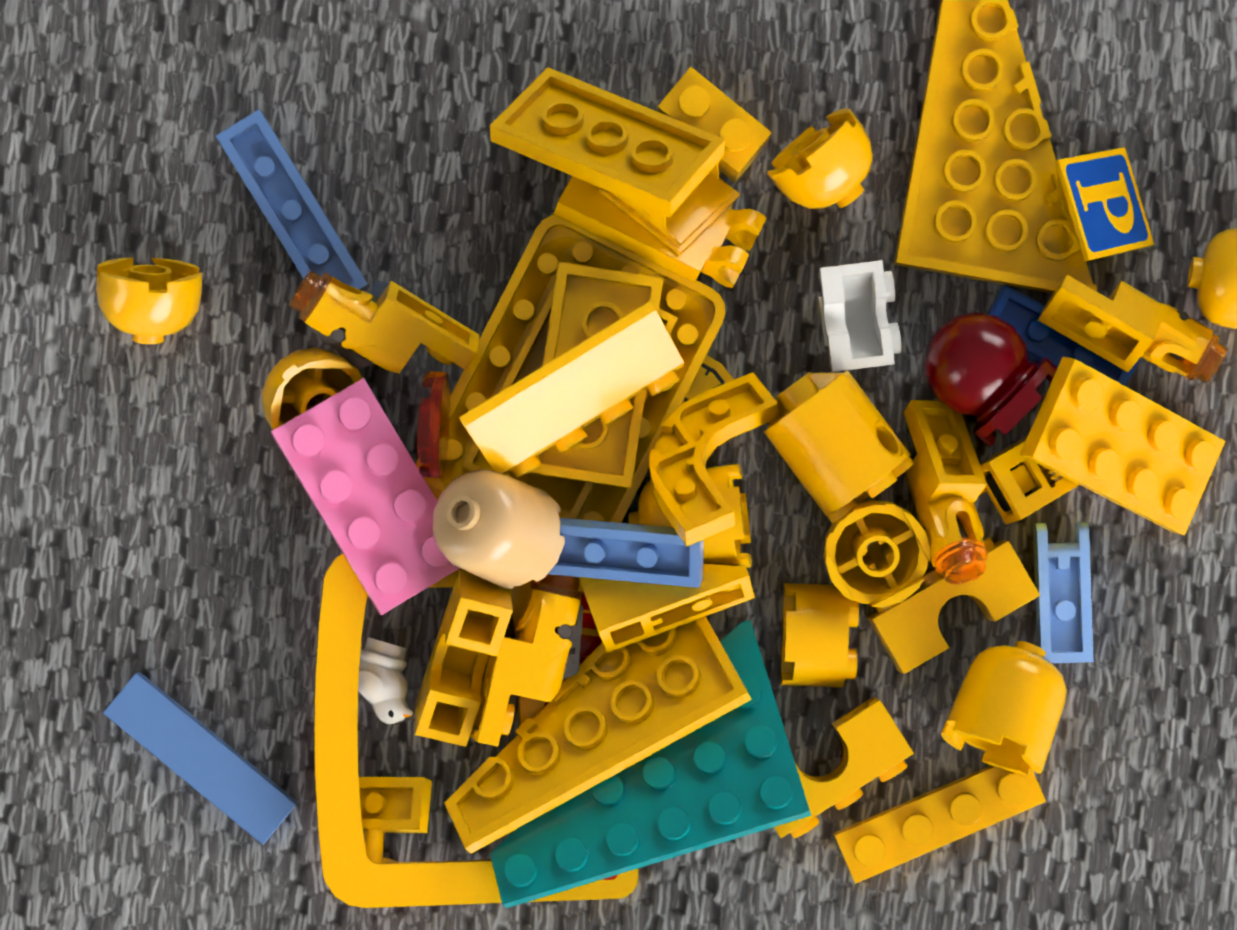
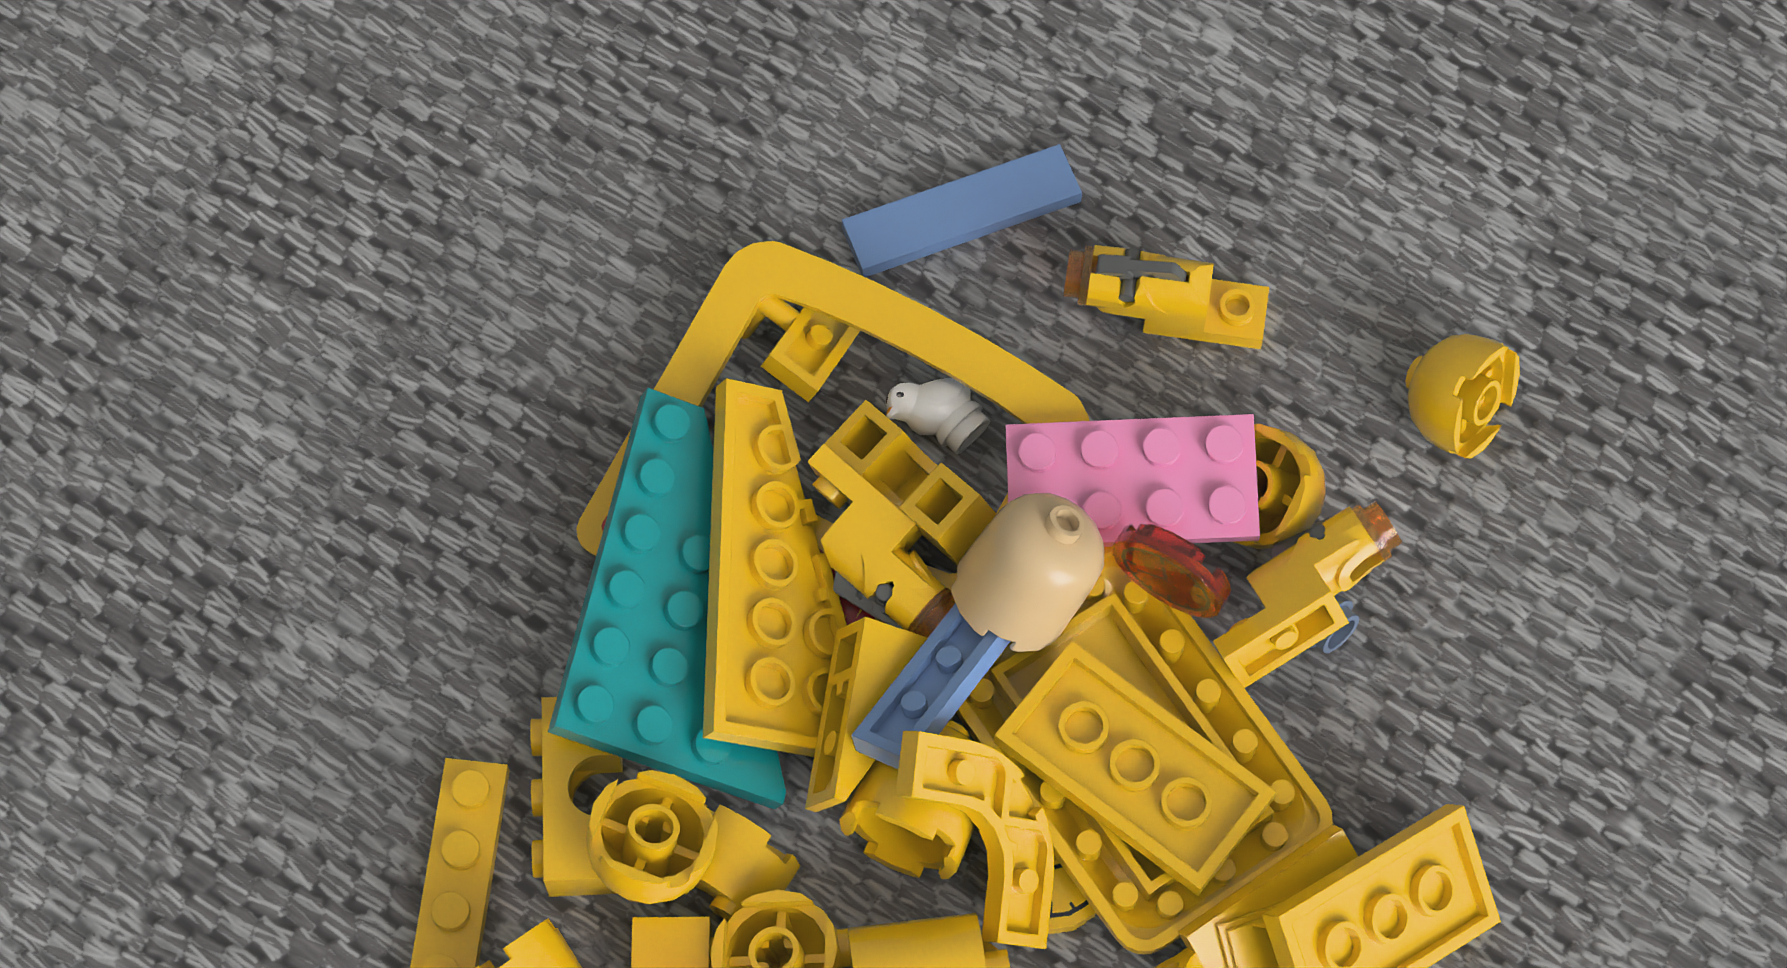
camera: 120 degrees right, 20 degrees down
(189, 559) = (1169, 294): none -> yellow plate
(287, 201) = (1483, 580): medium blue plate -> none
(574, 391) = (1128, 716): slope -> none
(851, 690) = (651, 837): none -> yellow cylinder

